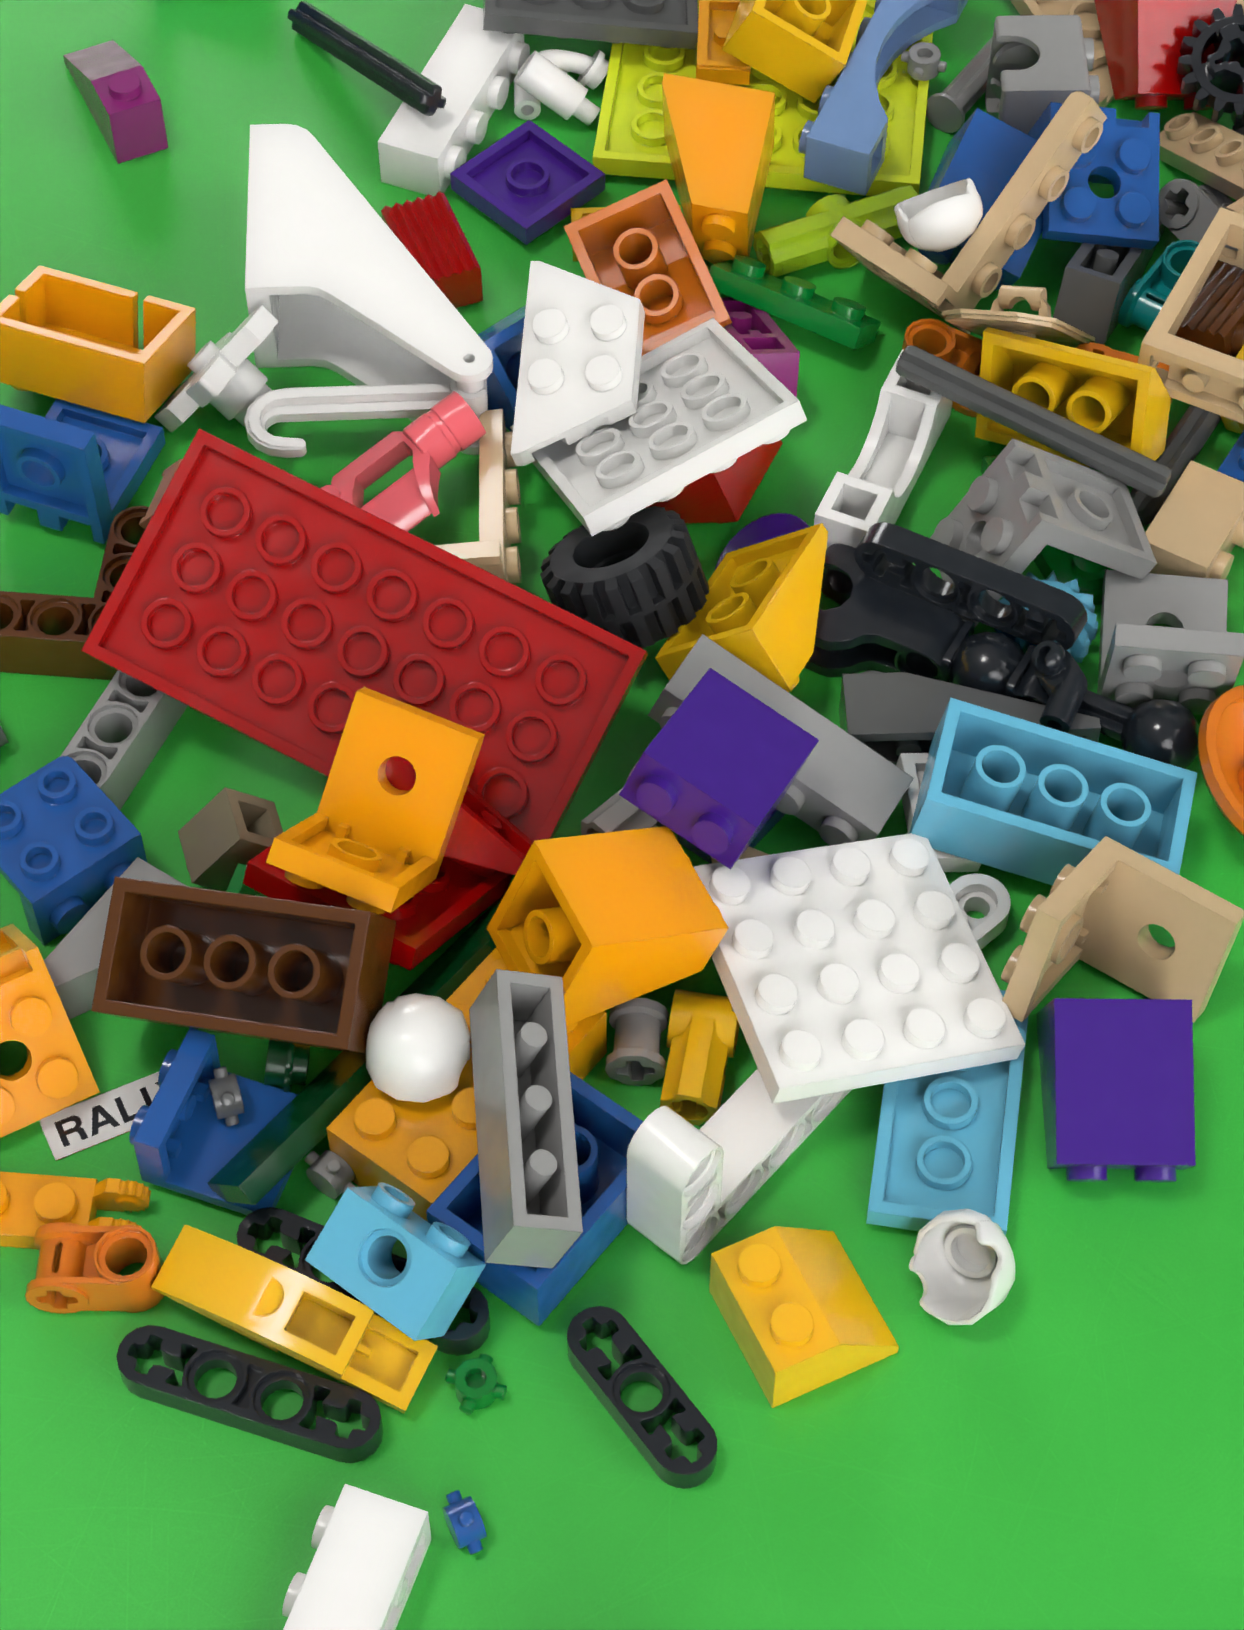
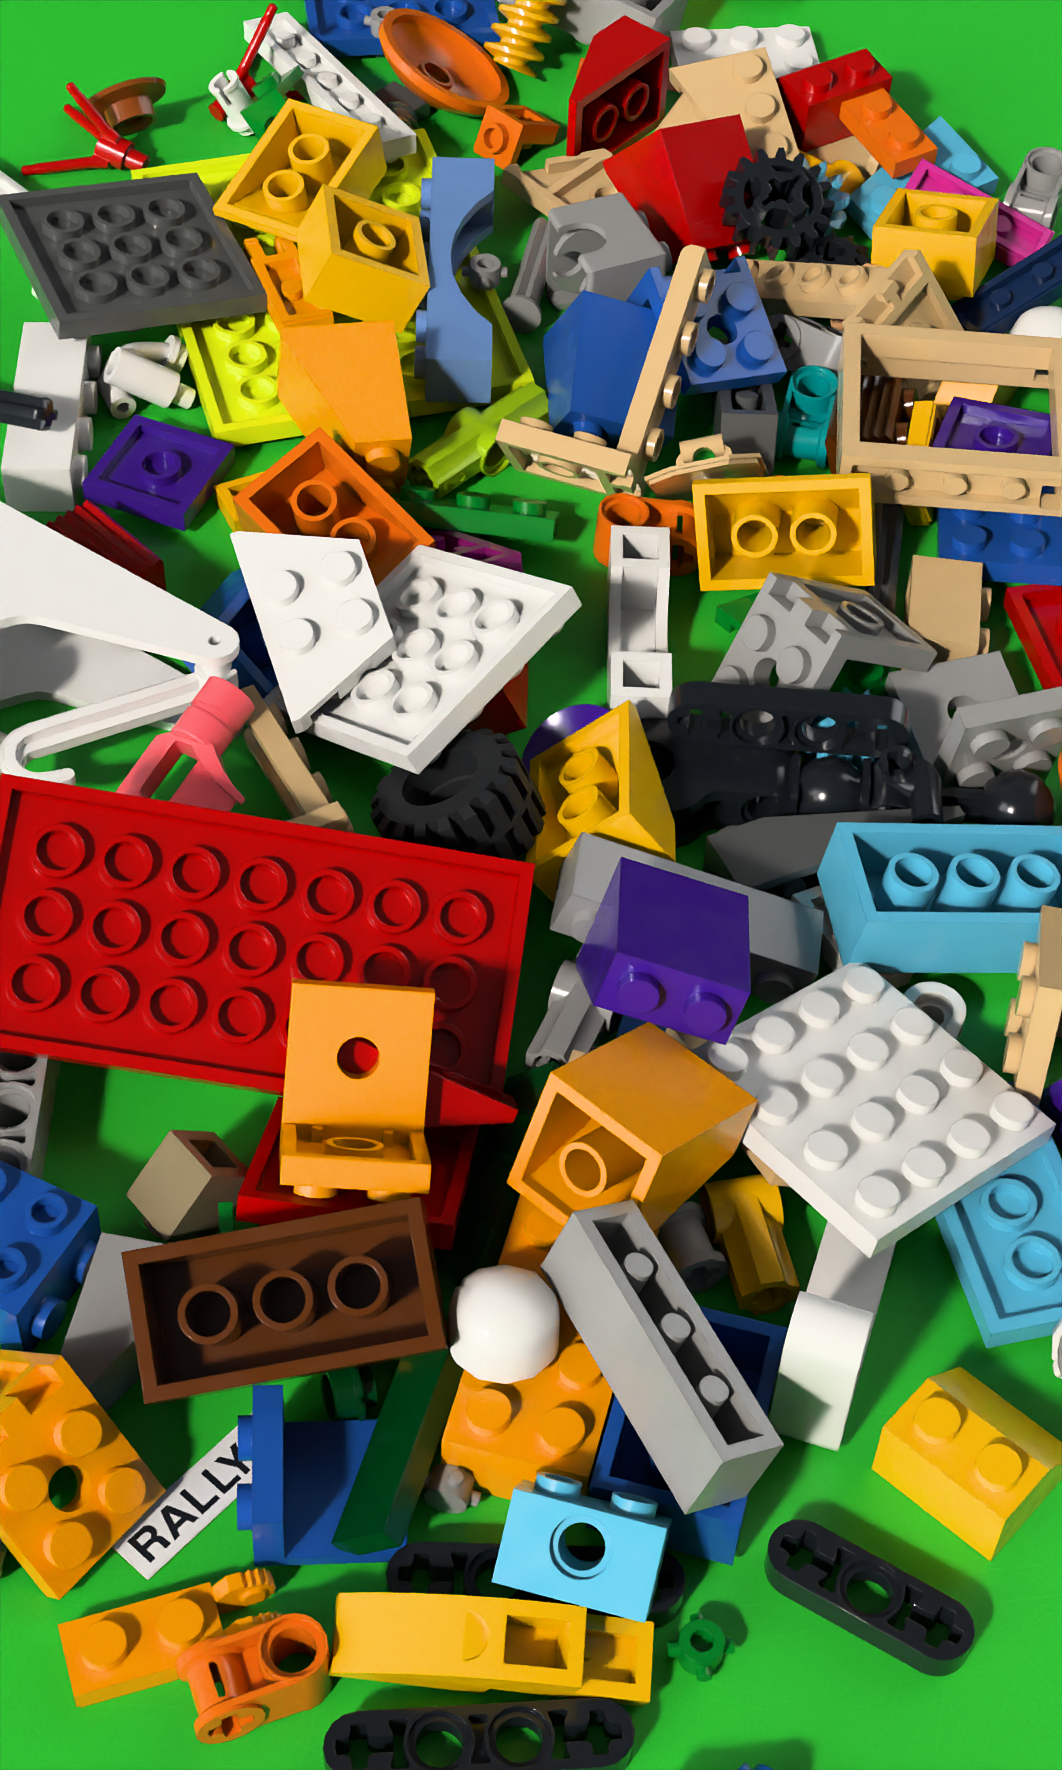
camera: 25 degrees left, 5 degrees down
(226, 1096) = (310, 1445): dark grey piece -> none
(940, 216) = (594, 394): white hair -> none
(1033, 421) = (765, 555): dark grey axle -> none

